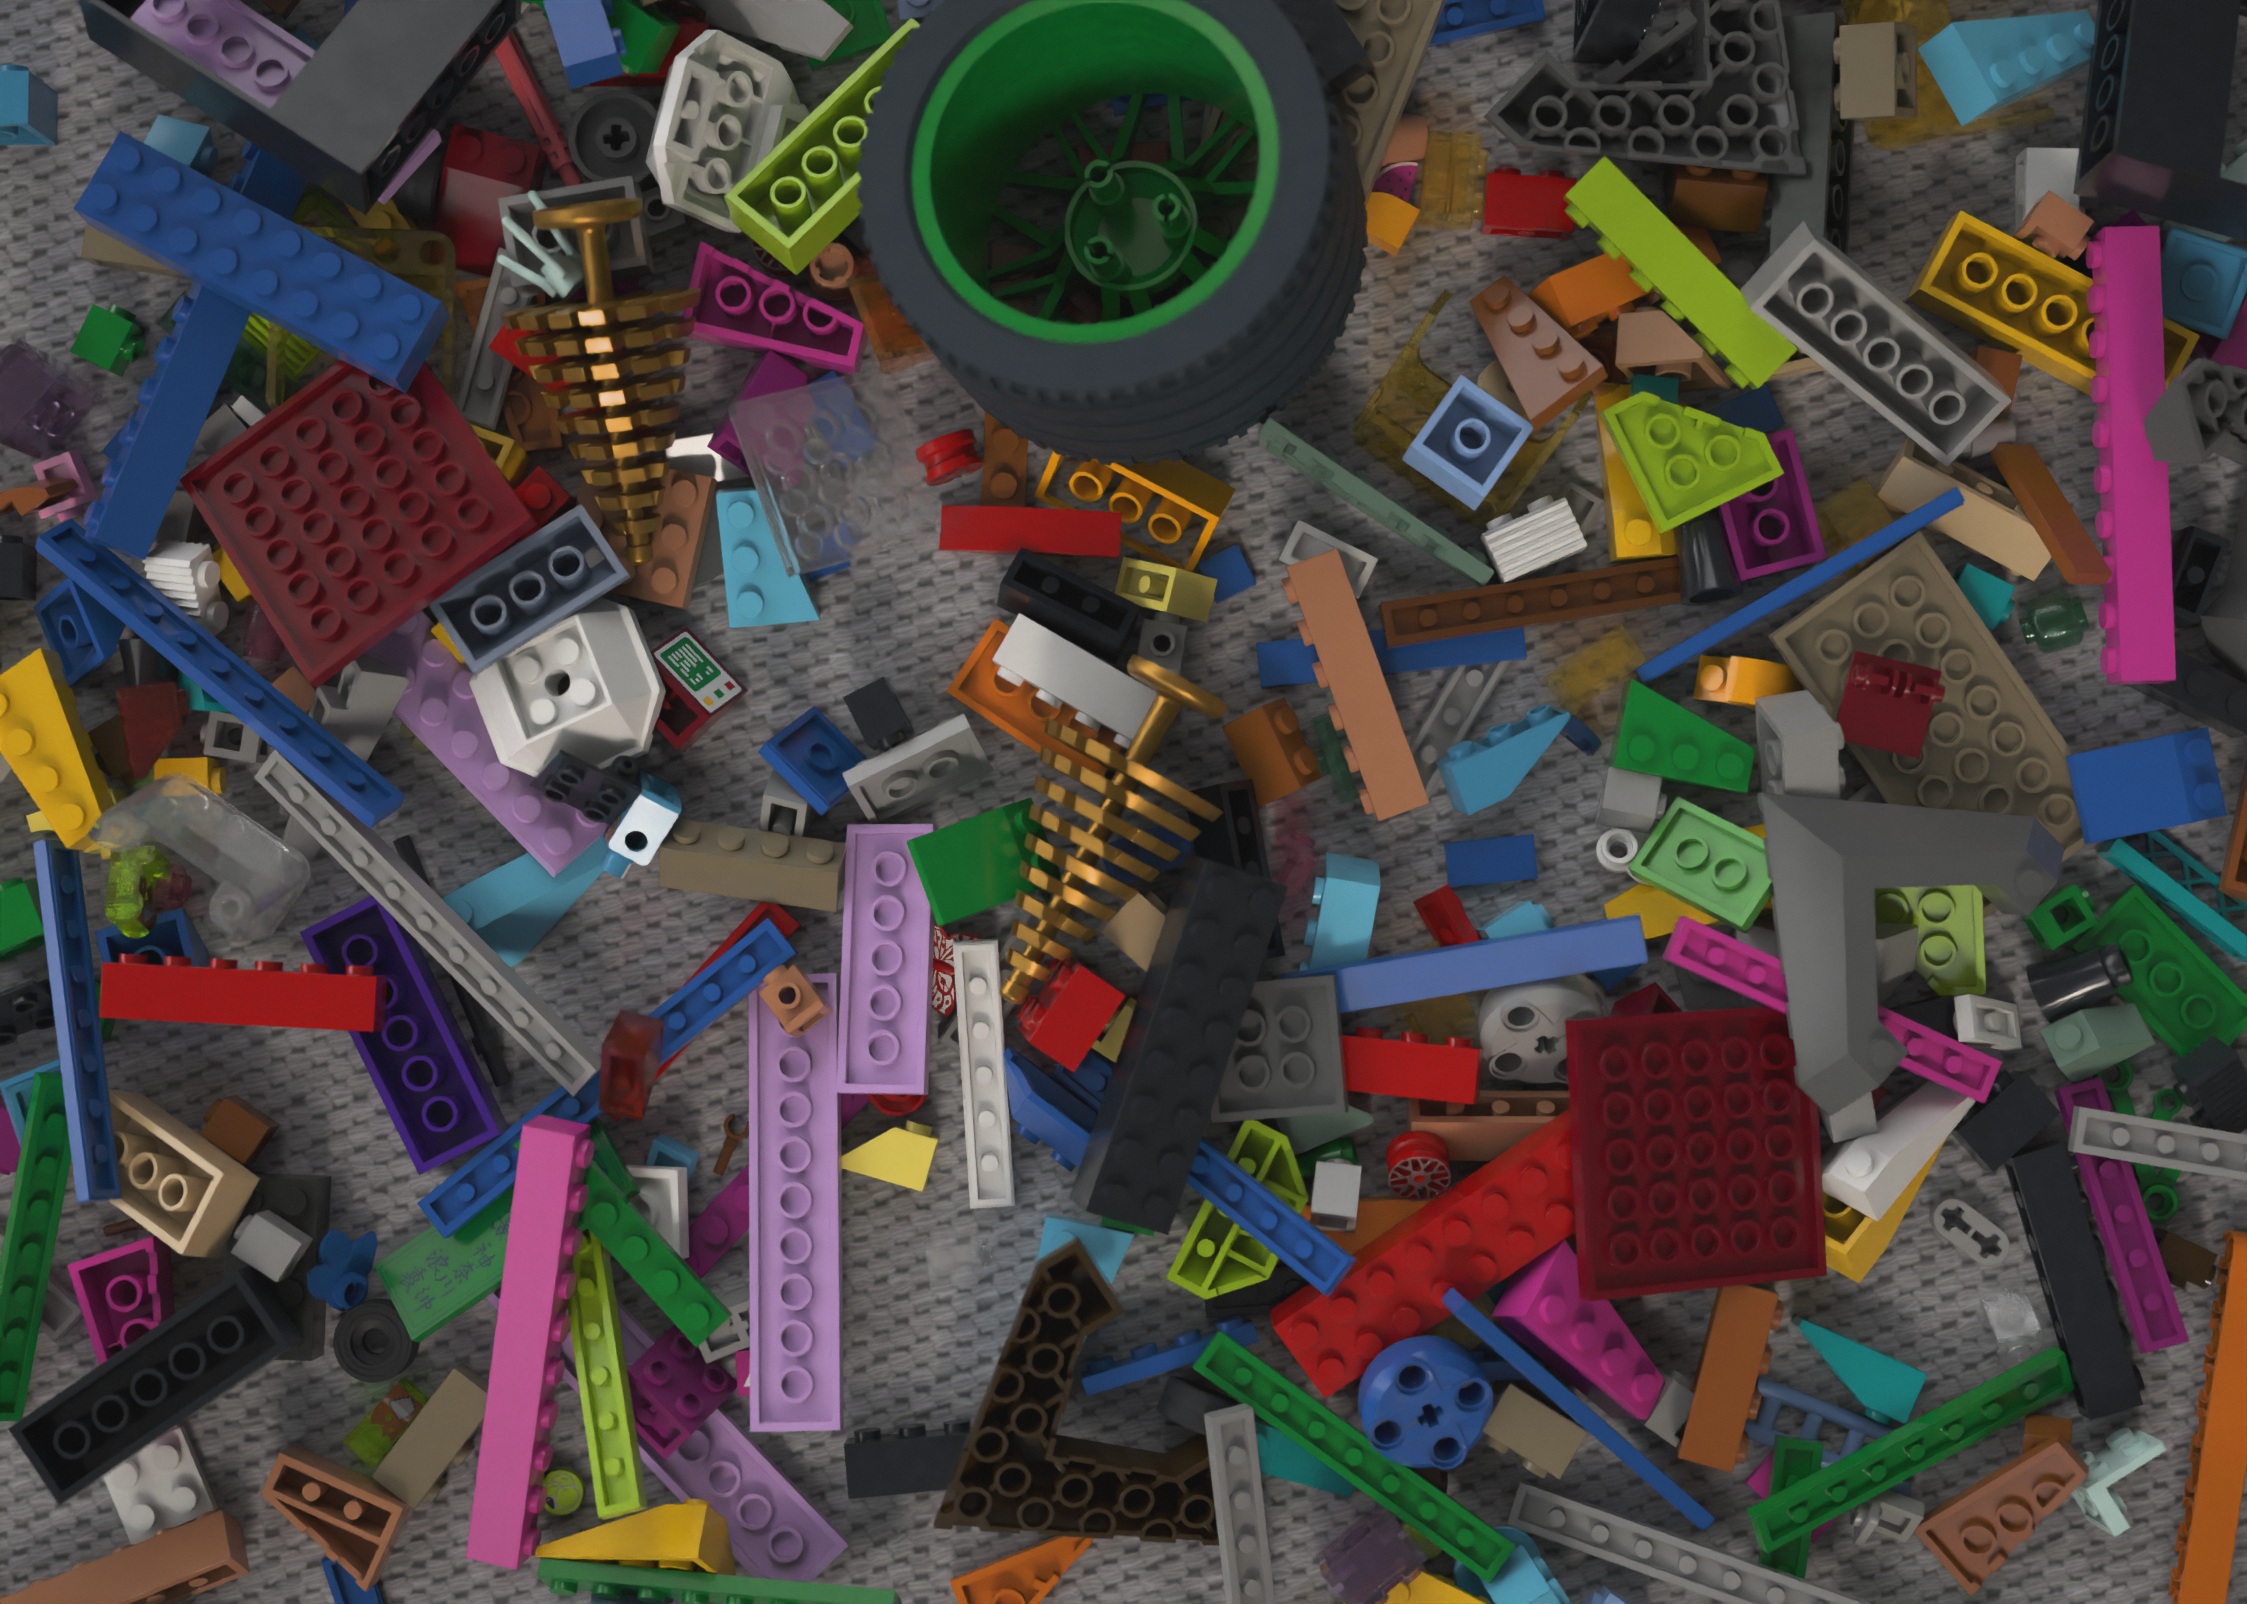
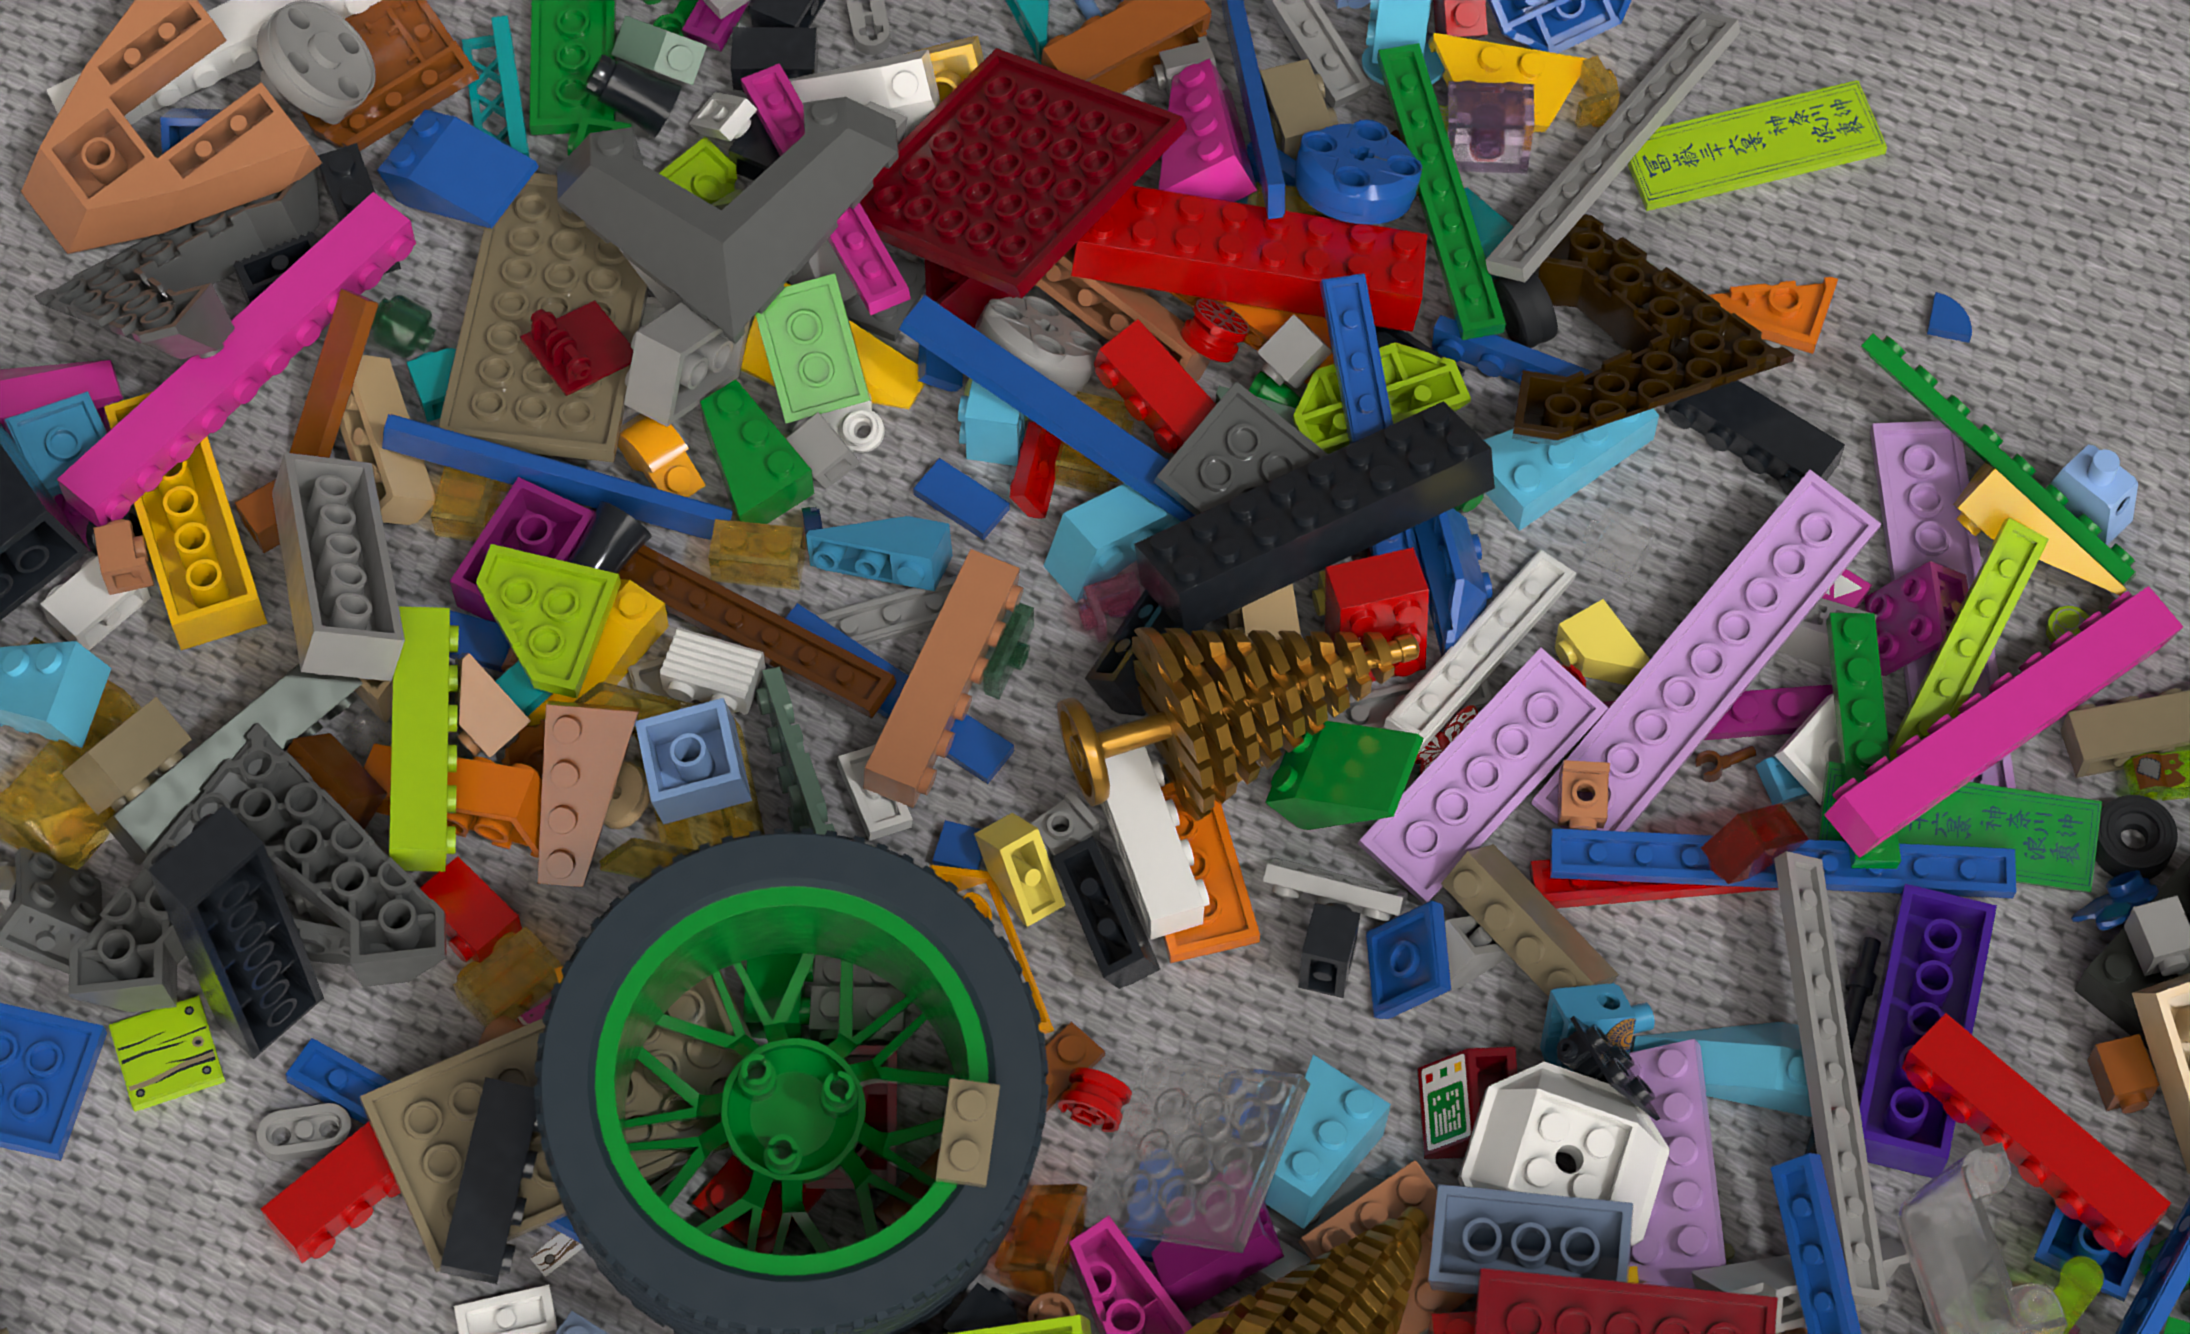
camera: 145 degrees left, 25 degrees down
(932, 235) = (967, 1133): none -> dark tan plate
(1035, 529) = (1084, 995): red slope -> none
(1272, 751) = (1049, 673): dark orange brick -> none

